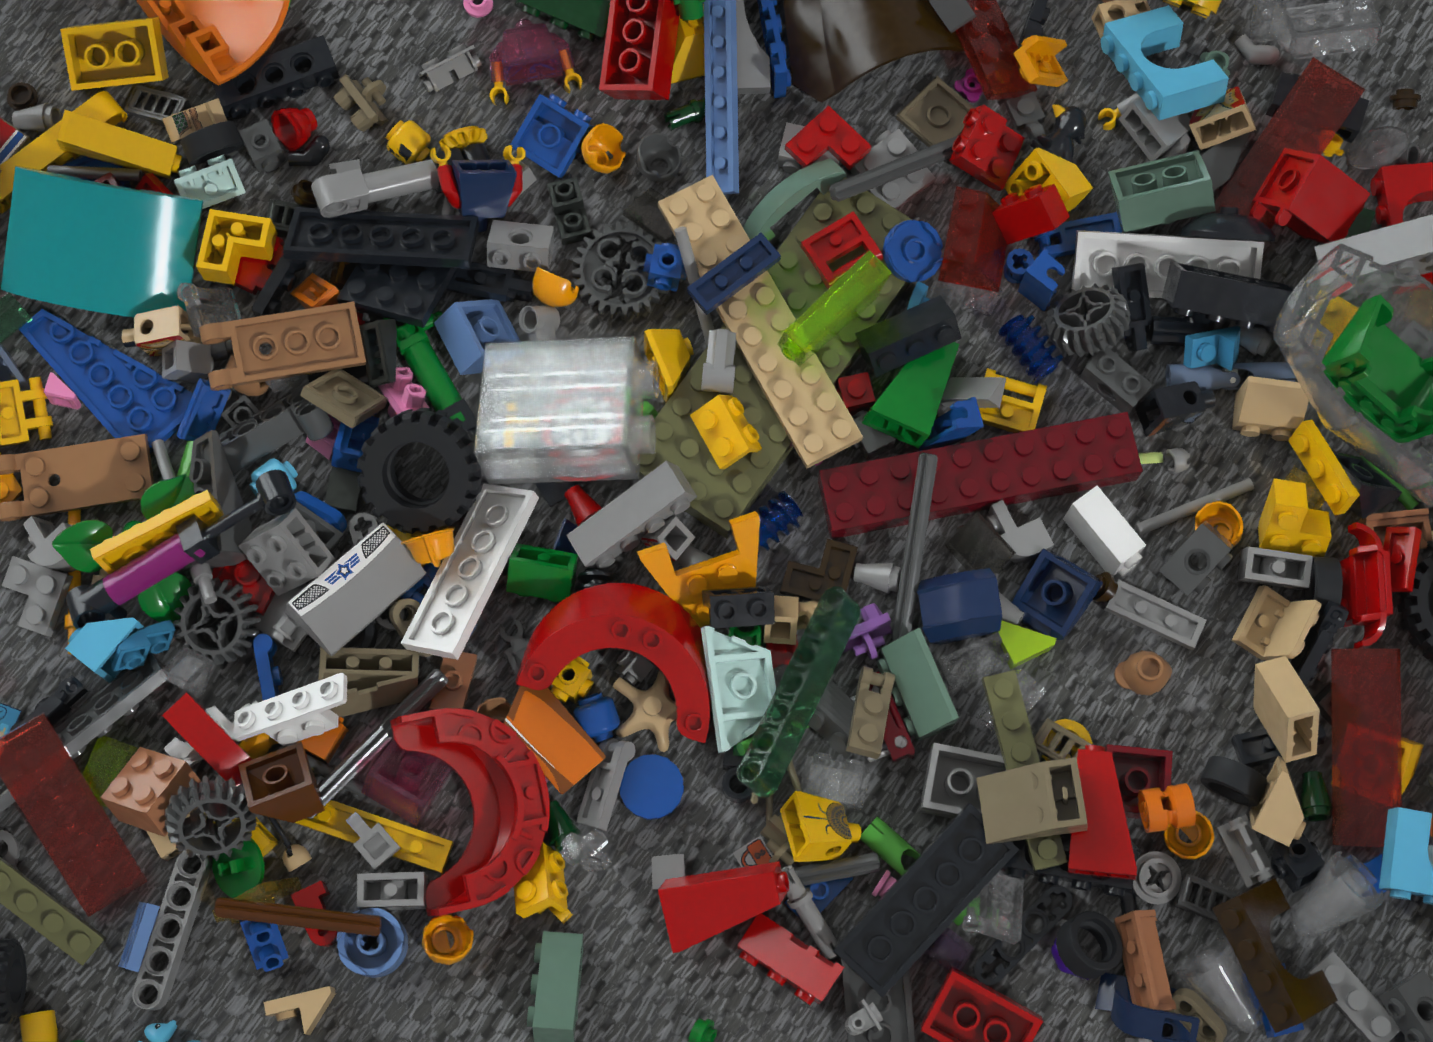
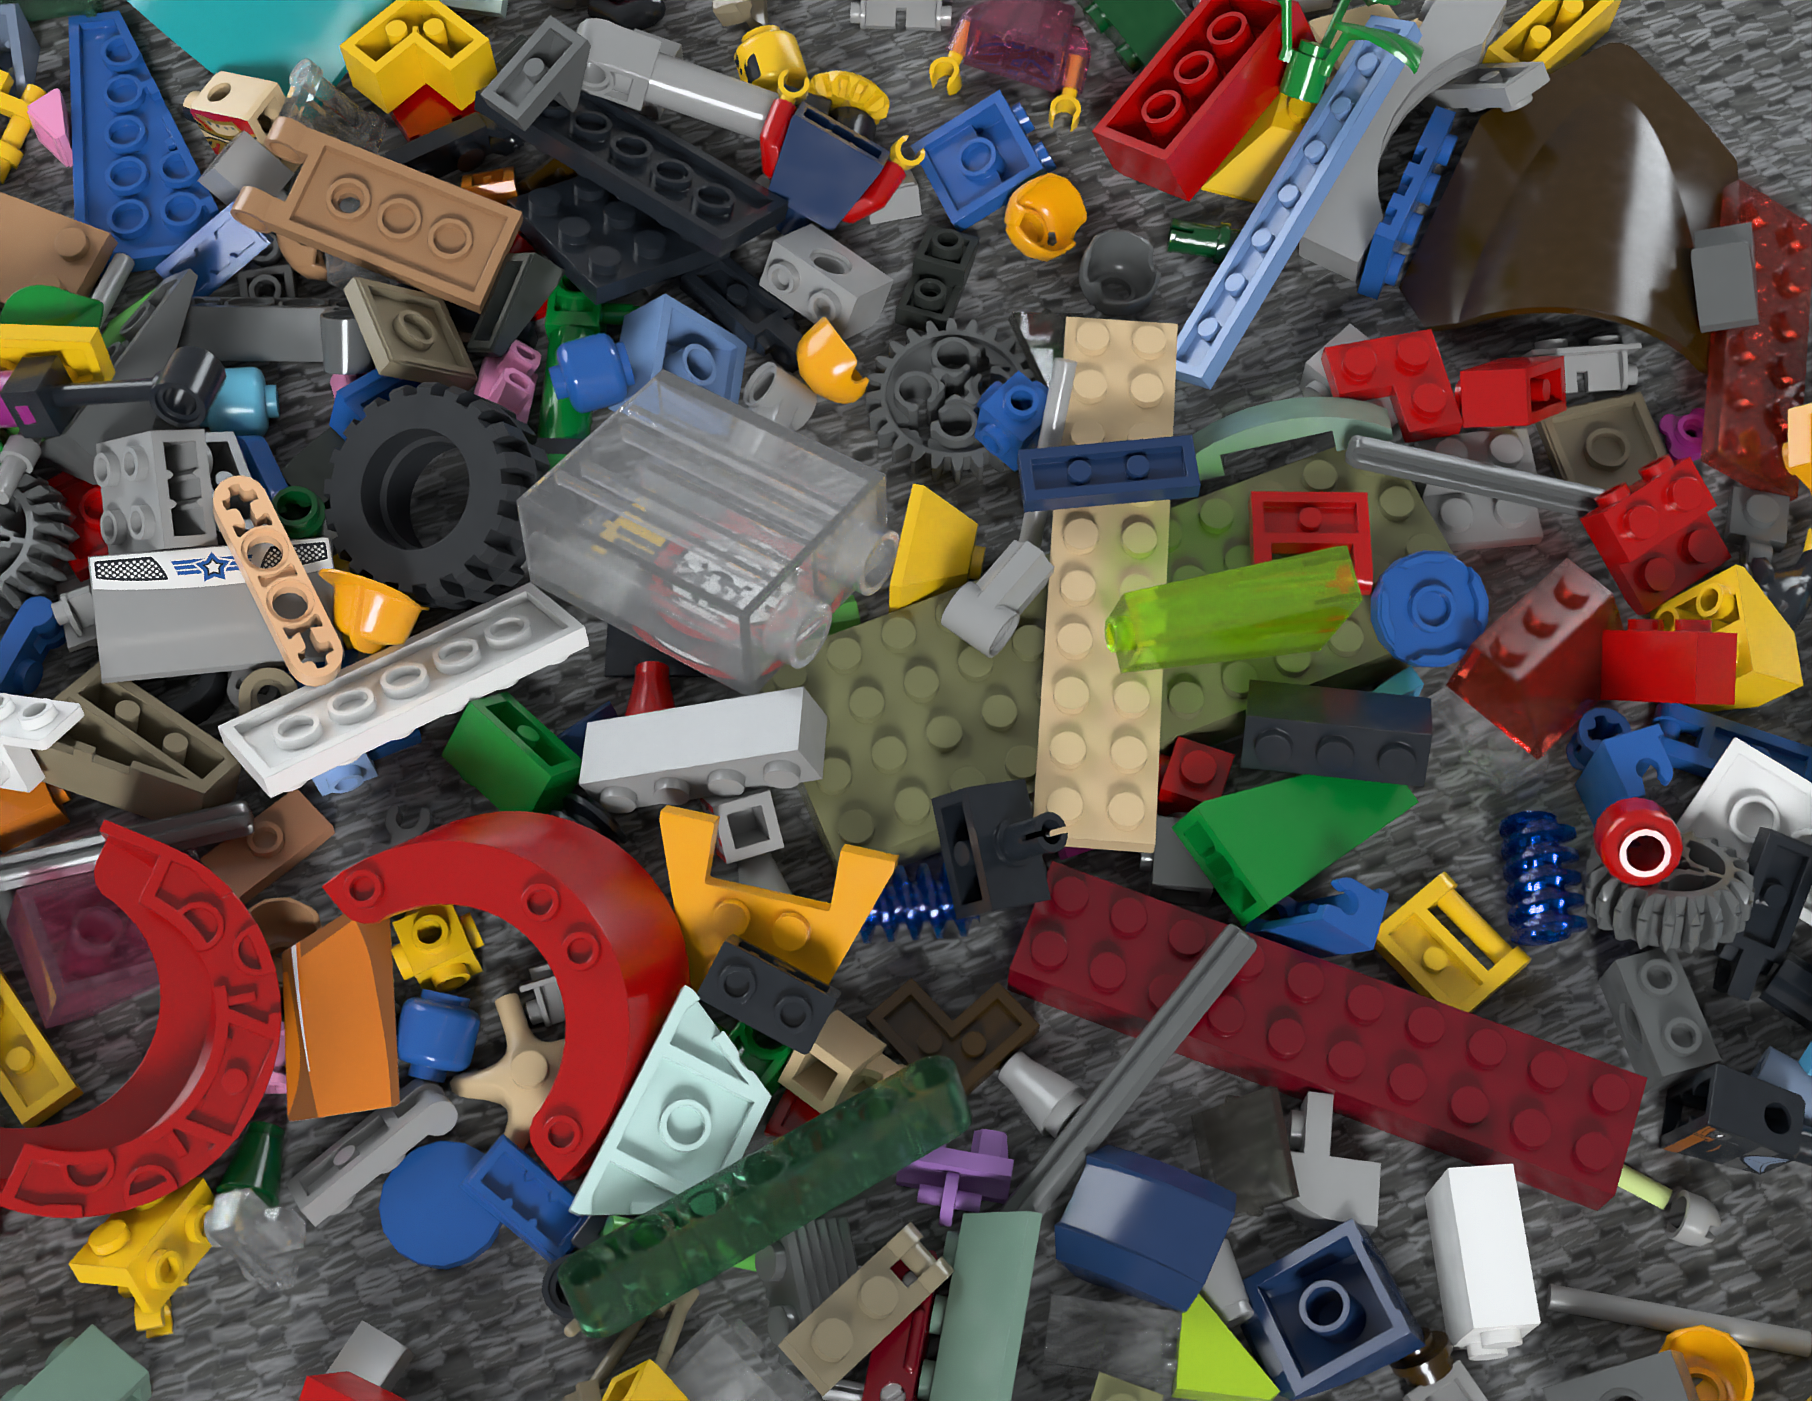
camera: 35 degrees right, 10 degrees down
(315, 224) = (542, 70): none -> dark grey slope
(360, 521) = (300, 512): none -> dark green cone
(382, 553) = (283, 578): none -> light nougat beam
(448, 364) = (592, 373): none -> blue head
(689, 761) = (525, 1199): none -> blue plate
(726, 430) = (939, 705): yellow bracket -> none
(795, 481) = (995, 847): none -> black brick
(883, 115) = (1512, 391): none -> red brick
(911, 71) = (1601, 361): none -> light grey hinge
(985, 389) = (1413, 900): light grey slope -> none
(1067, 309) = (1638, 841): none -> red head

